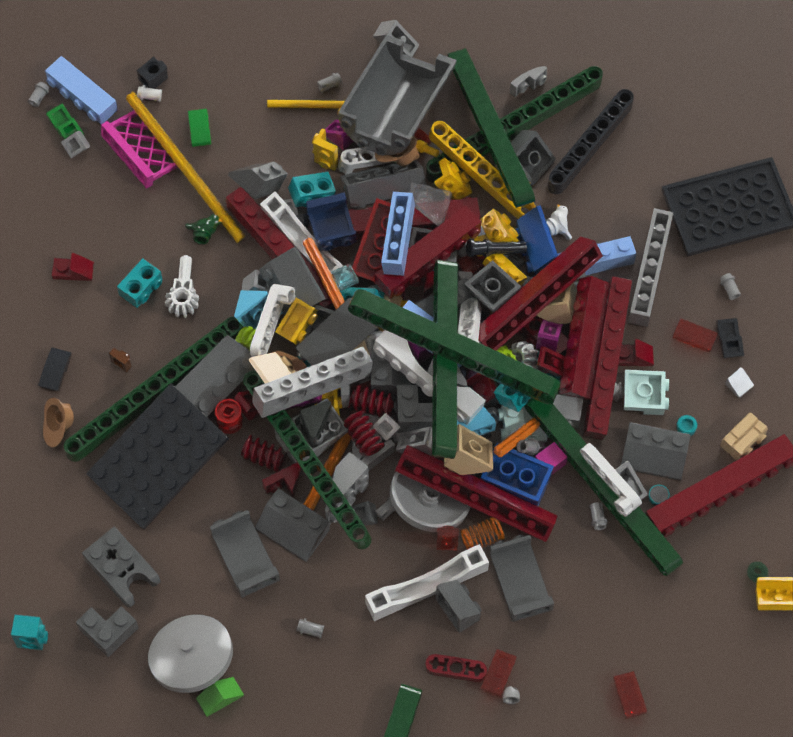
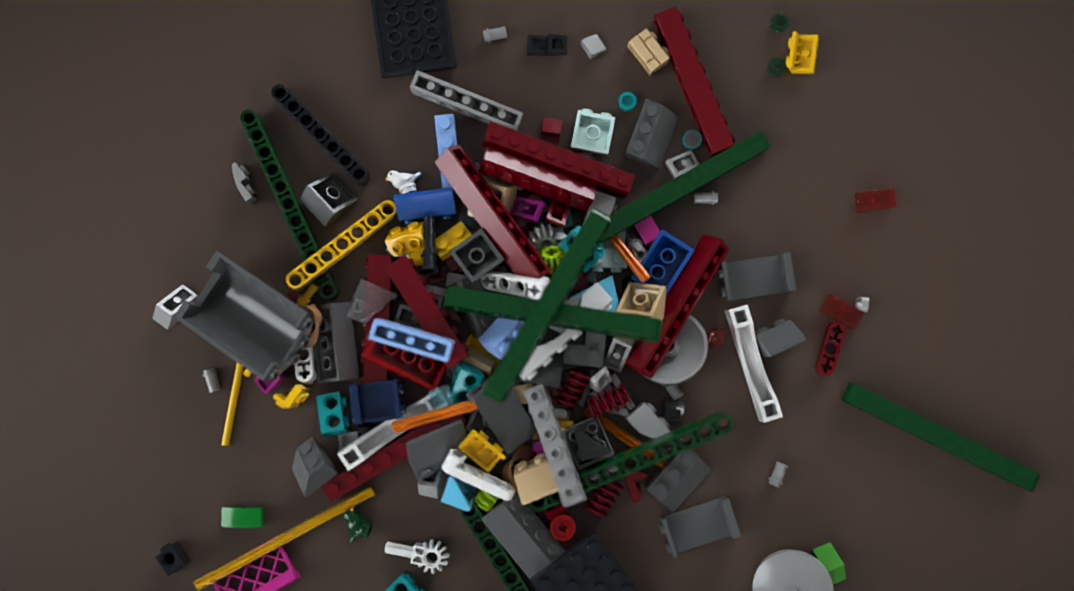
camera: 85 degrees left, 20 degrees up
(149, 93) = (194, 563): white pin -> none
(453, 180) = (346, 273): yellow bracket -> none
(492, 129) = (297, 228): dark green beam -> none
(501, 537) = (719, 318): orange piece -> none
(628, 499) = (707, 167): white beam -> none
(695, 335) = (538, 76): clear red tile -> none

